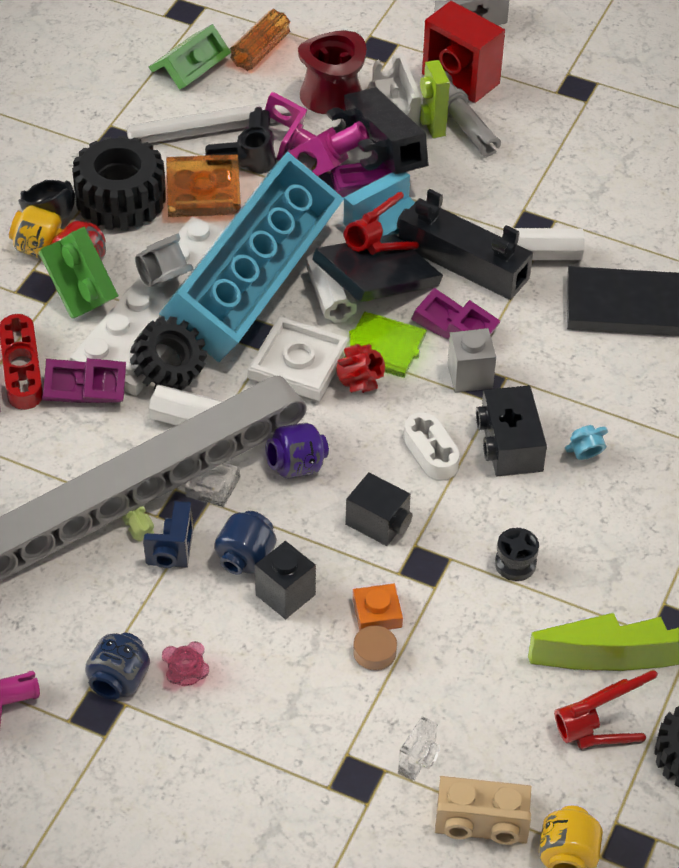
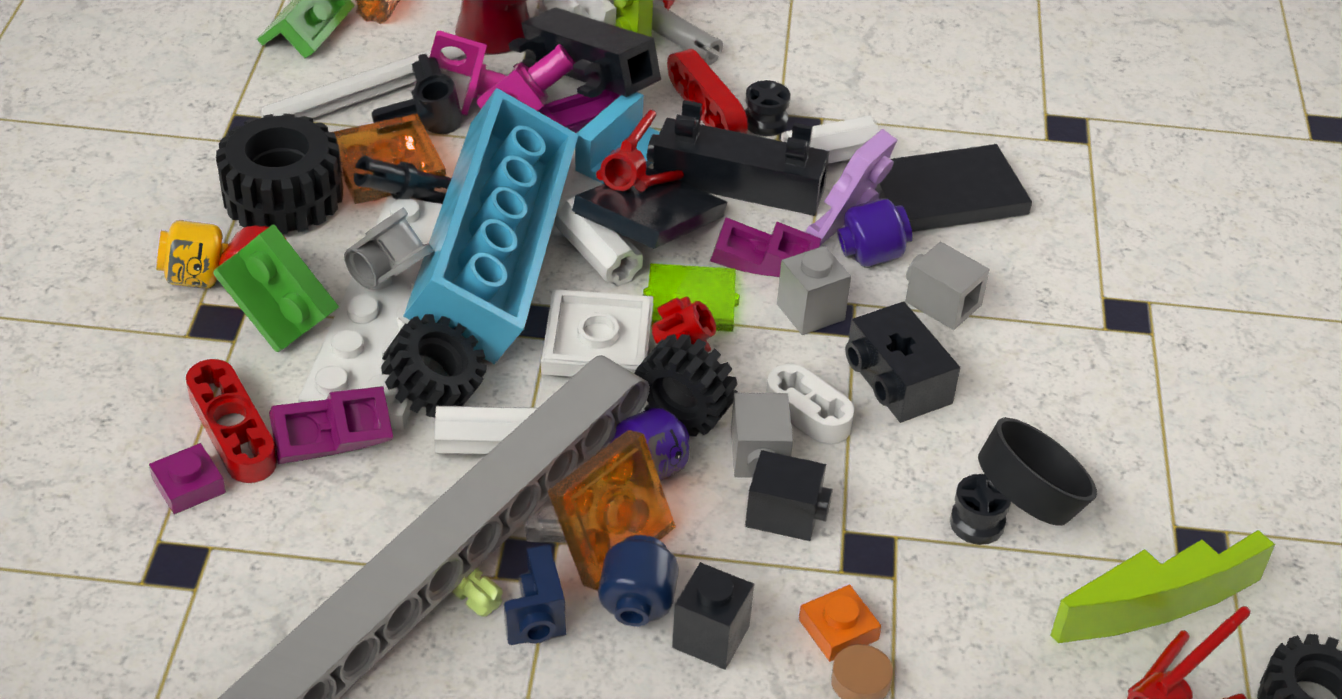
camera: 20 degrees left, 5 degrees down
(51, 196) = (195, 205): black hair -> none
(200, 206) = (401, 180): none -> black pin
(245, 481) = (608, 501): none -> clear orange plate
(338, 411) = (688, 382): none -> black tyre
(382, 455) = (759, 424): none -> light grey brick
(467, 183) = (700, 84): none -> red beam
(509, 204) = (767, 107): none -> black wheel
(539, 286) = (857, 183): none -> lavender wing
(543, 325) = (875, 232): none -> dark purple head
(578, 379) = (946, 285): none -> light grey brick
(578, 522) = (1035, 472): none -> black tyre
(587, 442) = (994, 354): medium azure plate -> none

